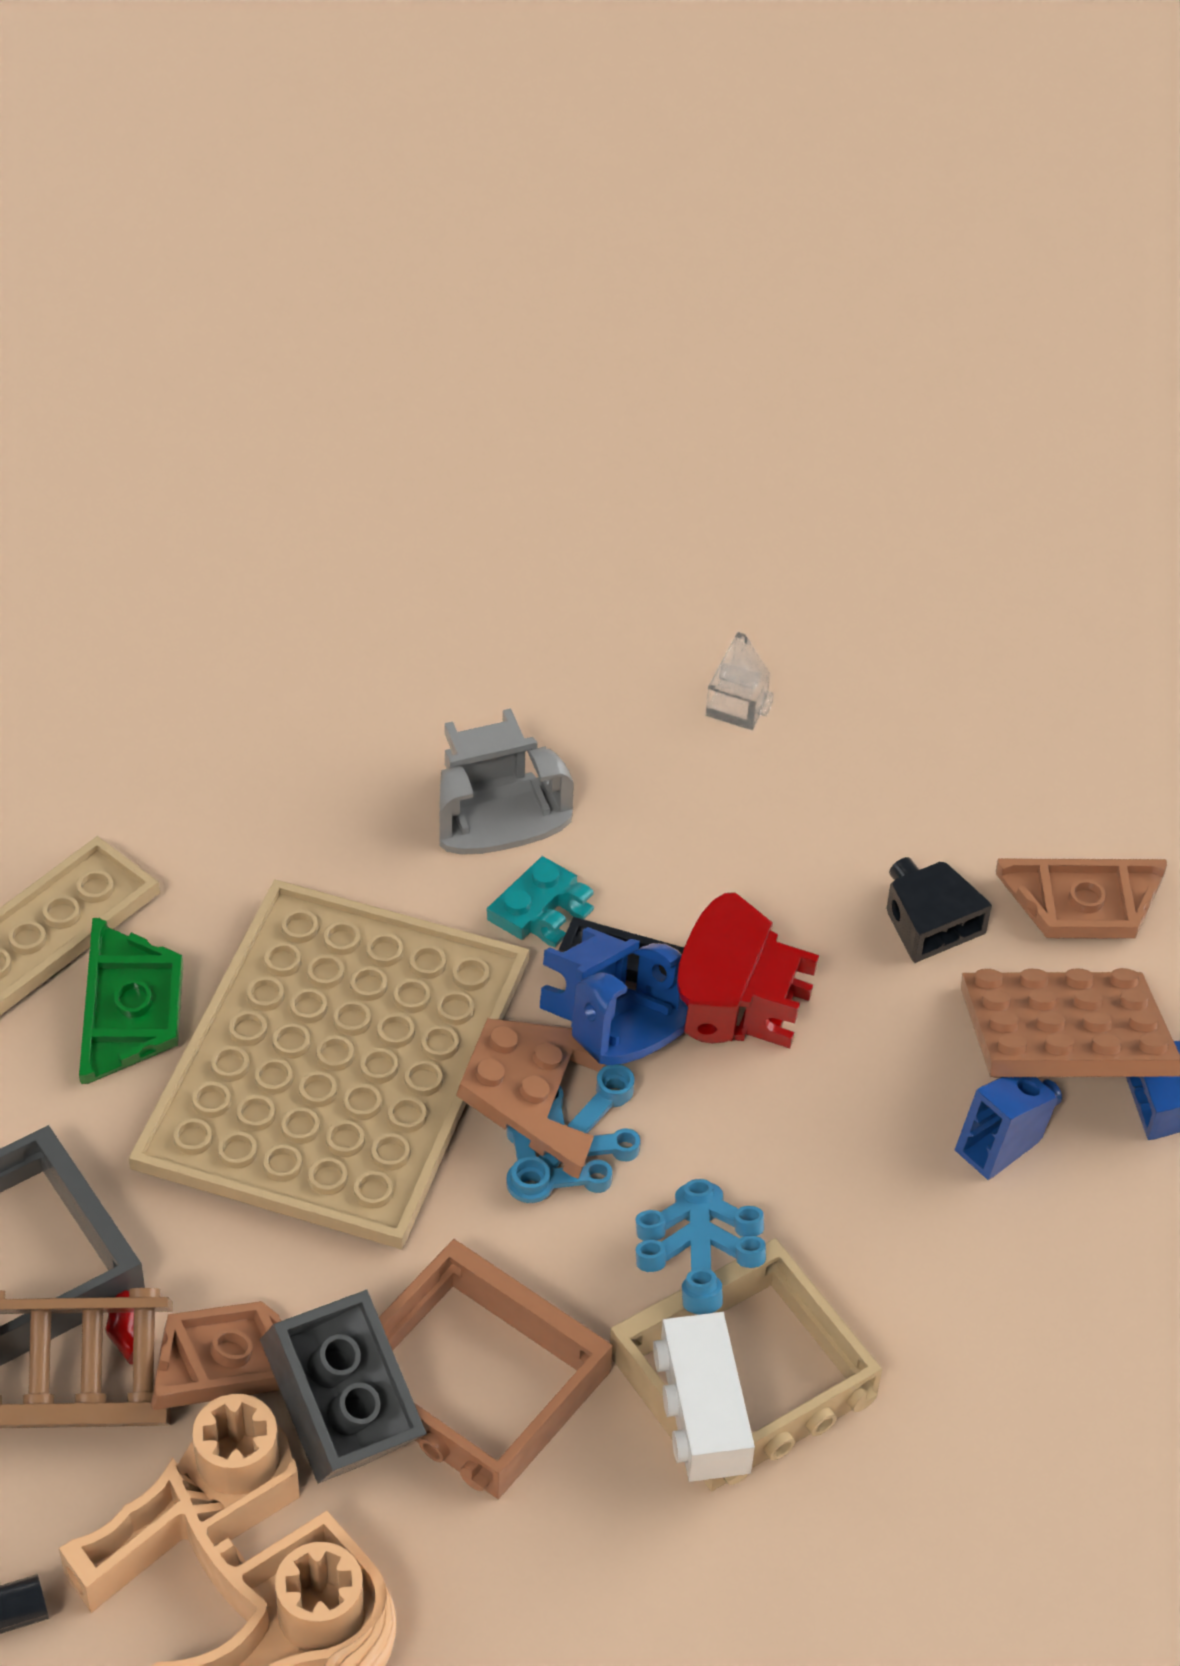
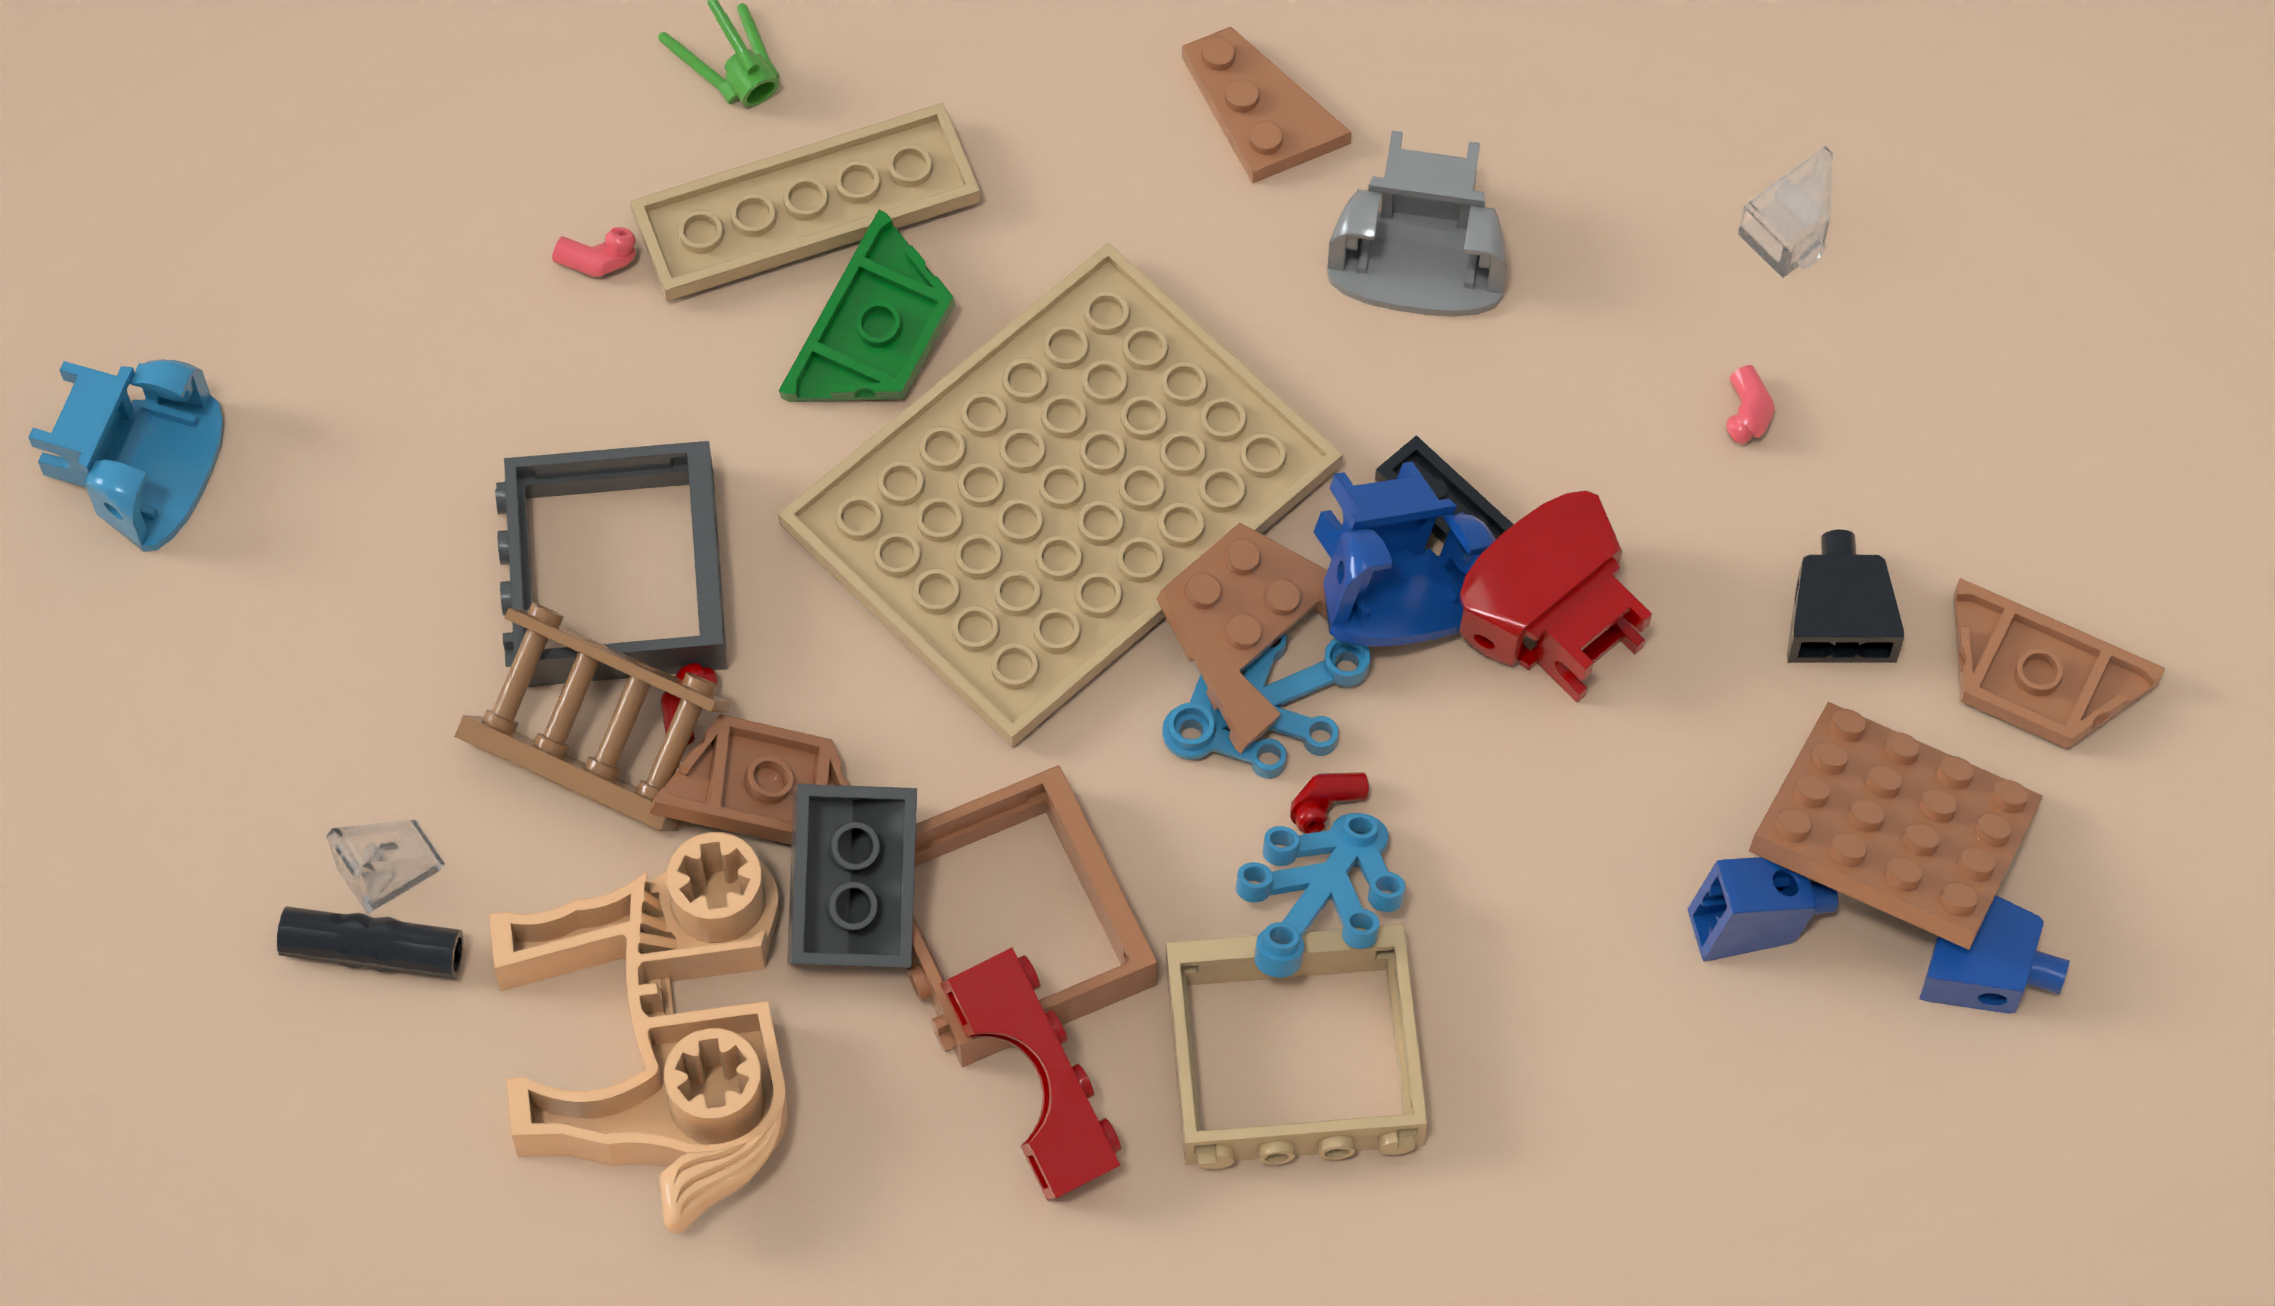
camera: 30 degrees right, 15 degrees up
(327, 758) = (1259, 106): none -> nougat wing
(532, 898) = (1393, 387): teal plate -> none
(619, 1504) = (1068, 1139): none -> red arch
(653, 1179) = (1318, 795): none -> red arm
(704, 1397) = (1209, 1065): white brick -> none
(788, 808) = (1755, 407): none -> coral arm

